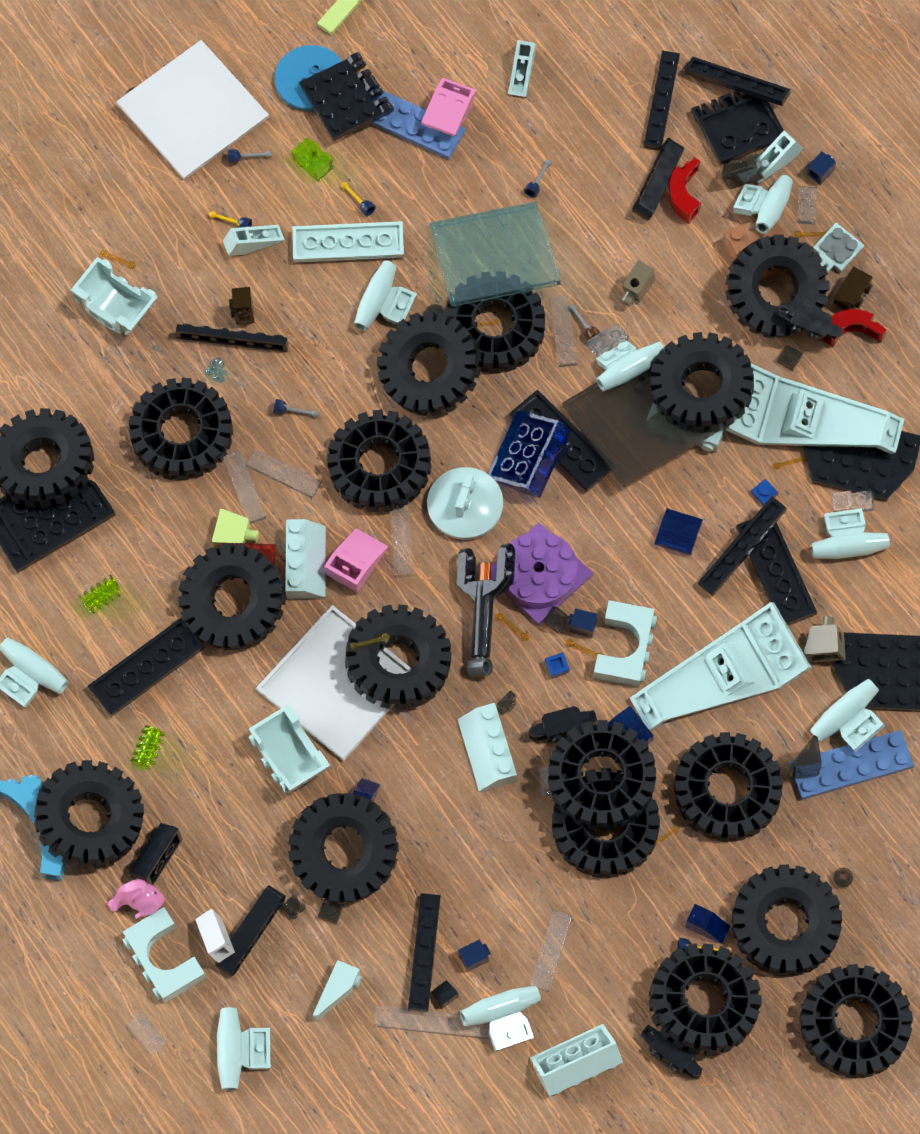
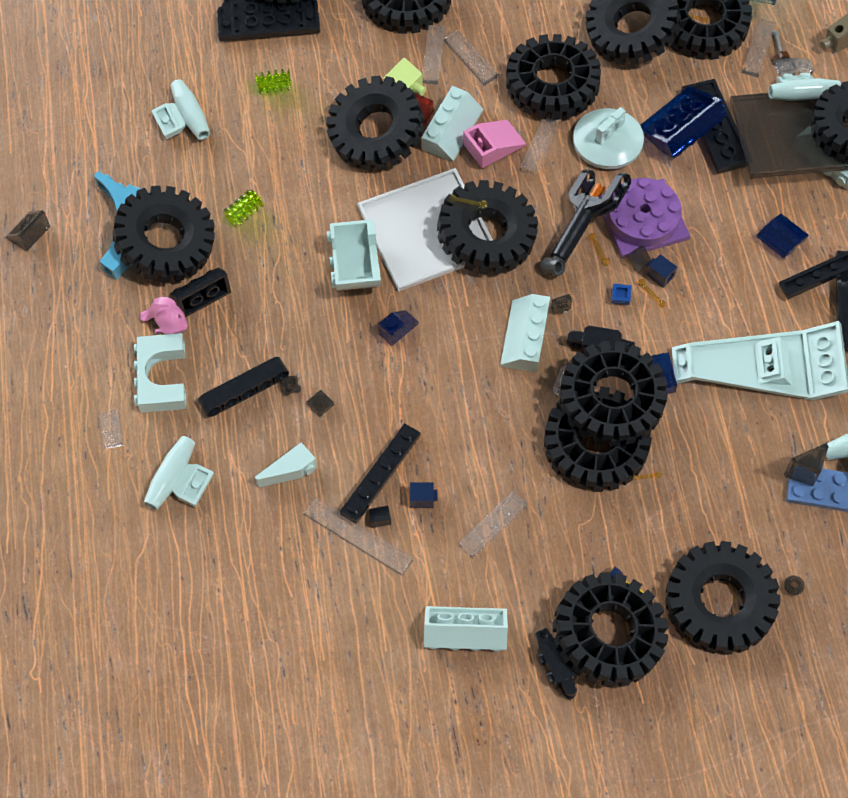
camera: 25 degrees right, 5 degrees down
(146, 667) = (278, 149): black plate -> none
(215, 935) = (209, 374): white brick -> none
(281, 407) = (494, 9): hinge -> none
(309, 840) = (336, 331): black tyre -> none
(503, 1014) = (420, 560): light aqua plate -> none
(627, 669) = (684, 324): light aqua arch -> none
(707, 924) = (646, 566): clear blue slope -> none
(728, 819) = (719, 488): black tyre -> none
(850, 1055) = (720, 744): black tyre -> none

